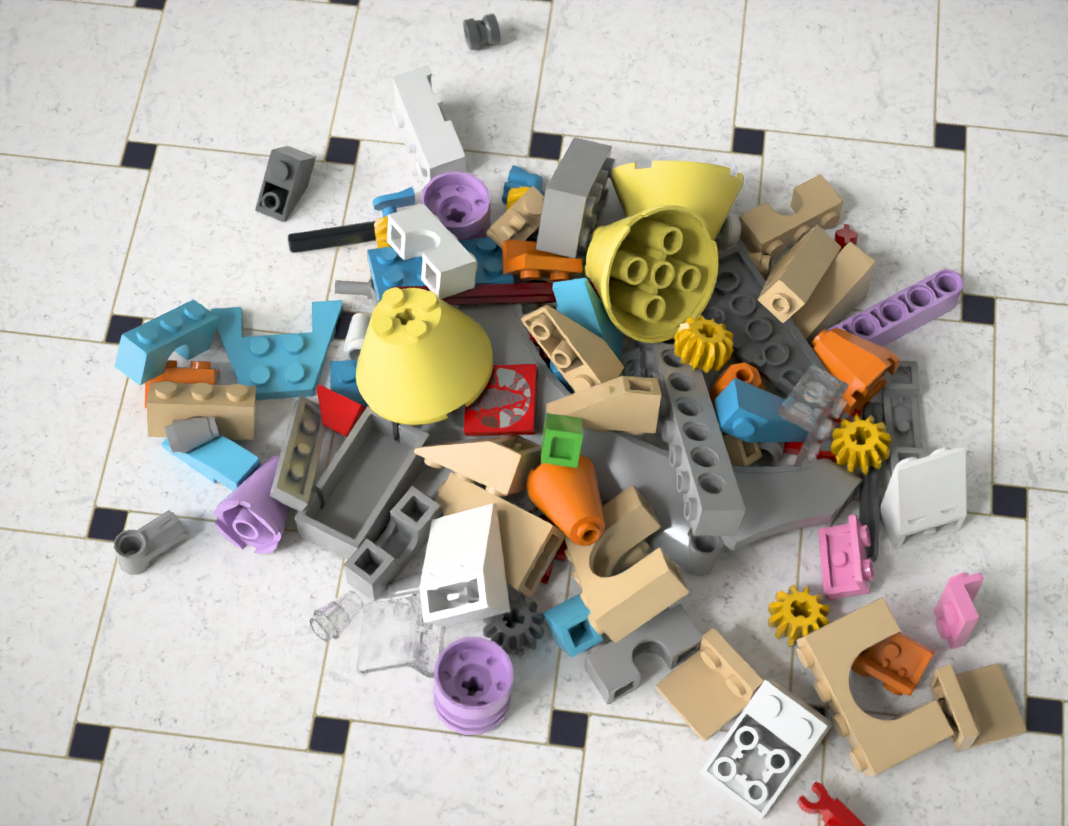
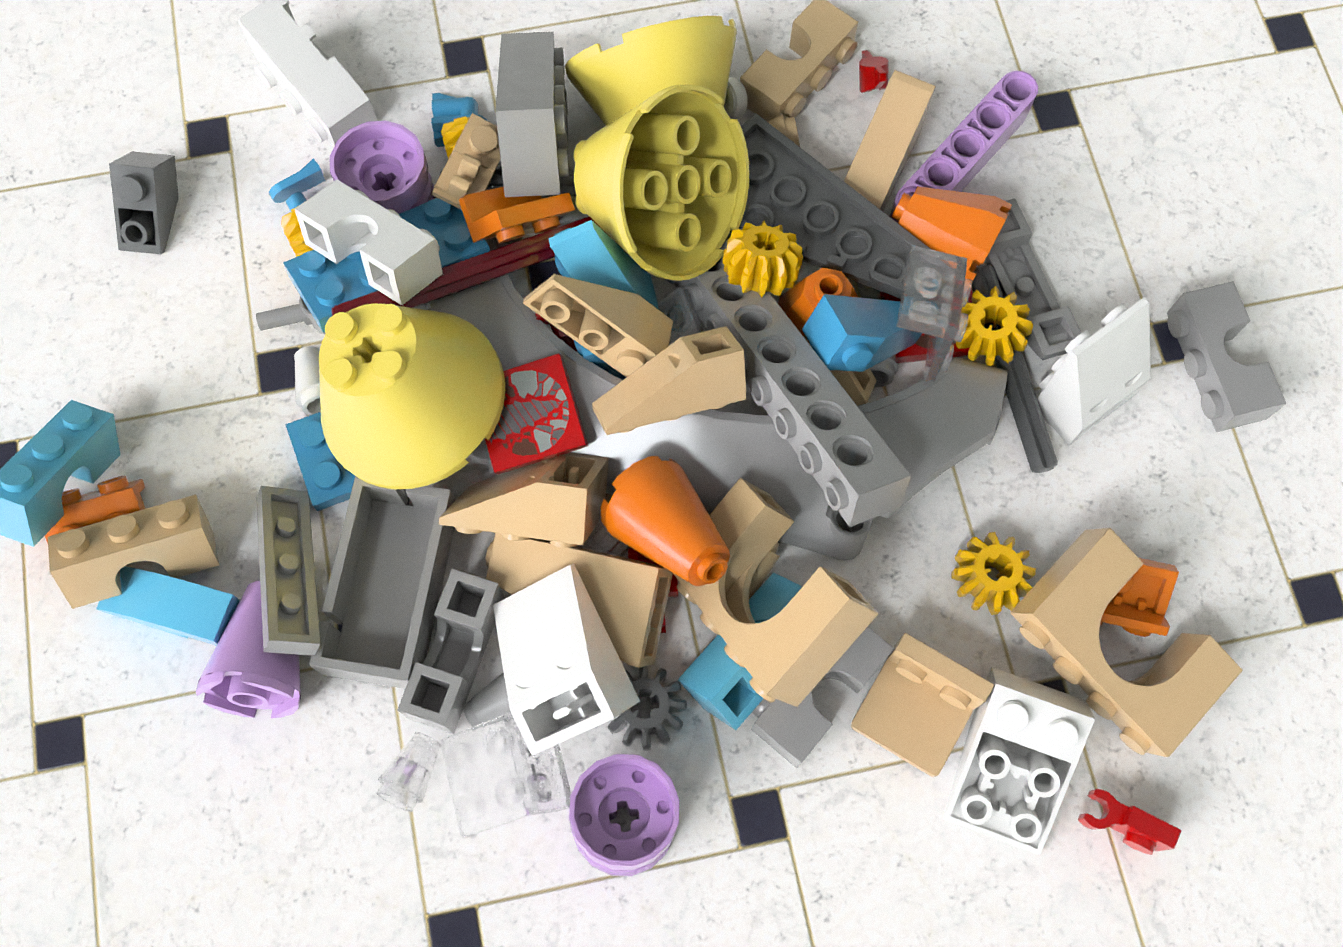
camera: 20 degrees left, 10 degrees up
(149, 540) = (124, 751): light grey piece -> none
(191, 433) = (128, 590): light grey cone -> none
(281, 362) = (220, 446): medium azure wing -> none
(331, 237) = (230, 256): black axle -> none
(338, 411) = (318, 492): red tile -> none
(561, 440) = (633, 452): bright green panel -> none
(798, 273) = (846, 131): tan slope -> none
(844, 559) = (1023, 482): bright pink bracket -> none
(955, 609) = (1185, 505): bright pink bracket -> none
(977, 705) = (1245, 616): tan bracket -> none
(1032, 548) = (1228, 390): none -> light grey arch

